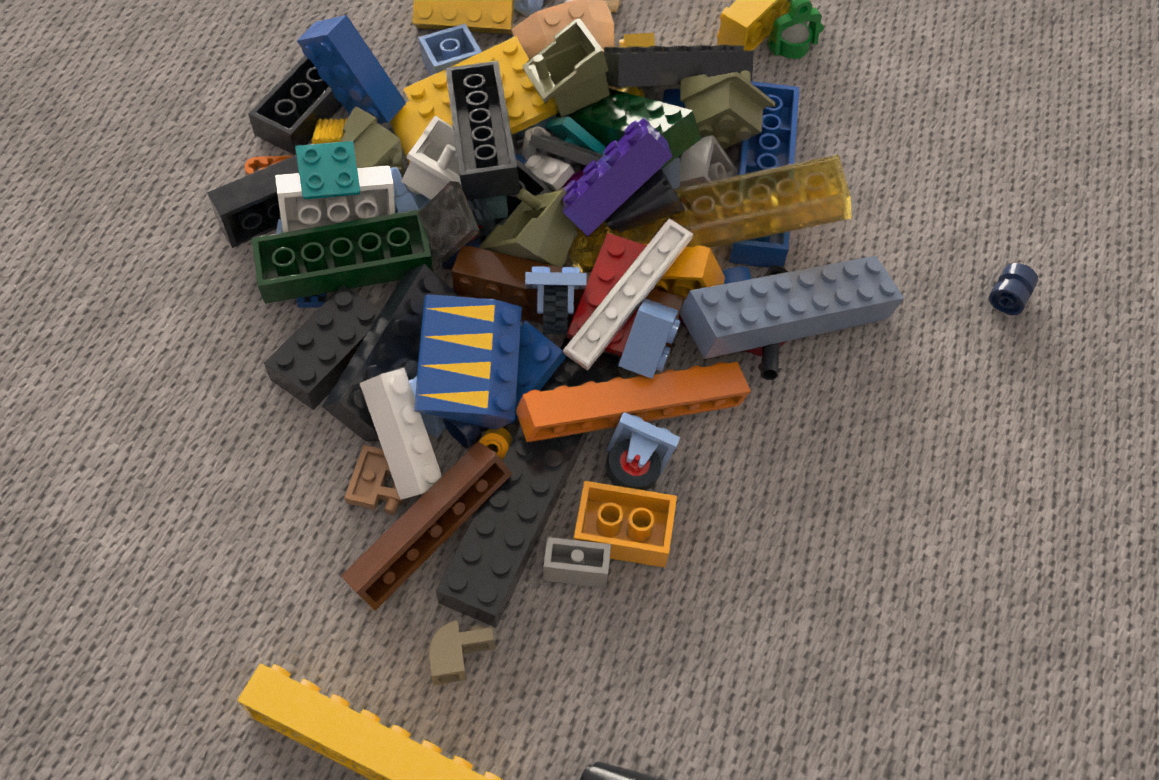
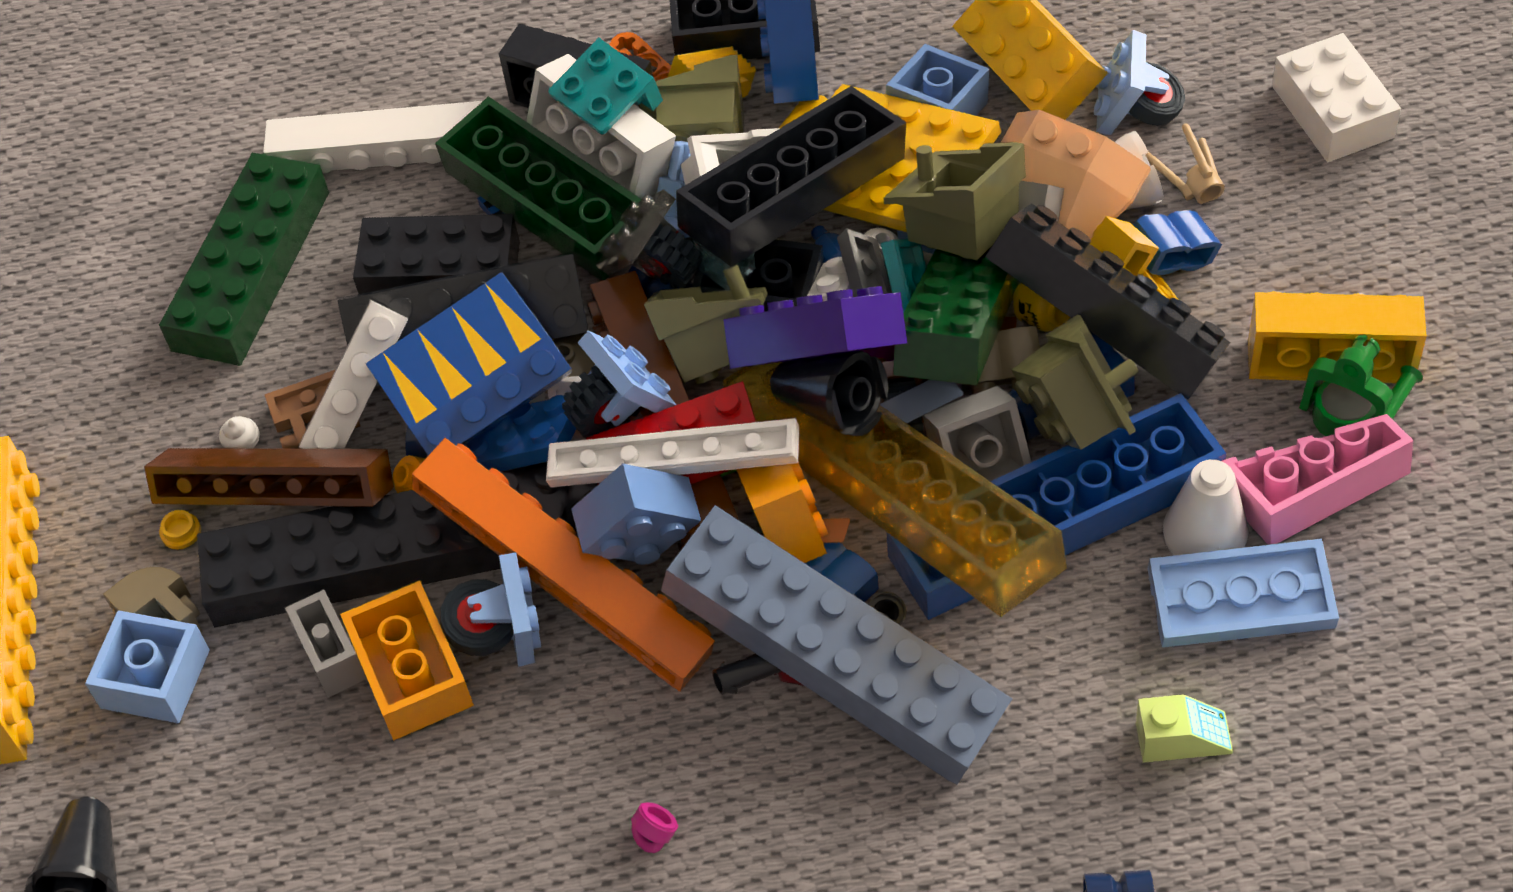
camera: 65 degrees right, 5 degrees down
(190, 328) = (365, 137): none -> white brick
(219, 450) = (244, 259): none -> dark green brick
(359, 532) = (239, 433): none -> white plate
(404, 607) = (179, 529): none -> yellow plate
(510, 678) = (147, 666): none -> light blue brick
(640, 24) = (1182, 241): none -> blue brick
(821, 119) = (1206, 512): none -> white cone
(825, 462) = (652, 823): none -> dark pink tile
(828, 76) = (1319, 476): none -> bright pink wedge
(871, 138) = (1242, 593): none -> light blue gear
(927, 212) = (1180, 729): none -> yellowish green slope

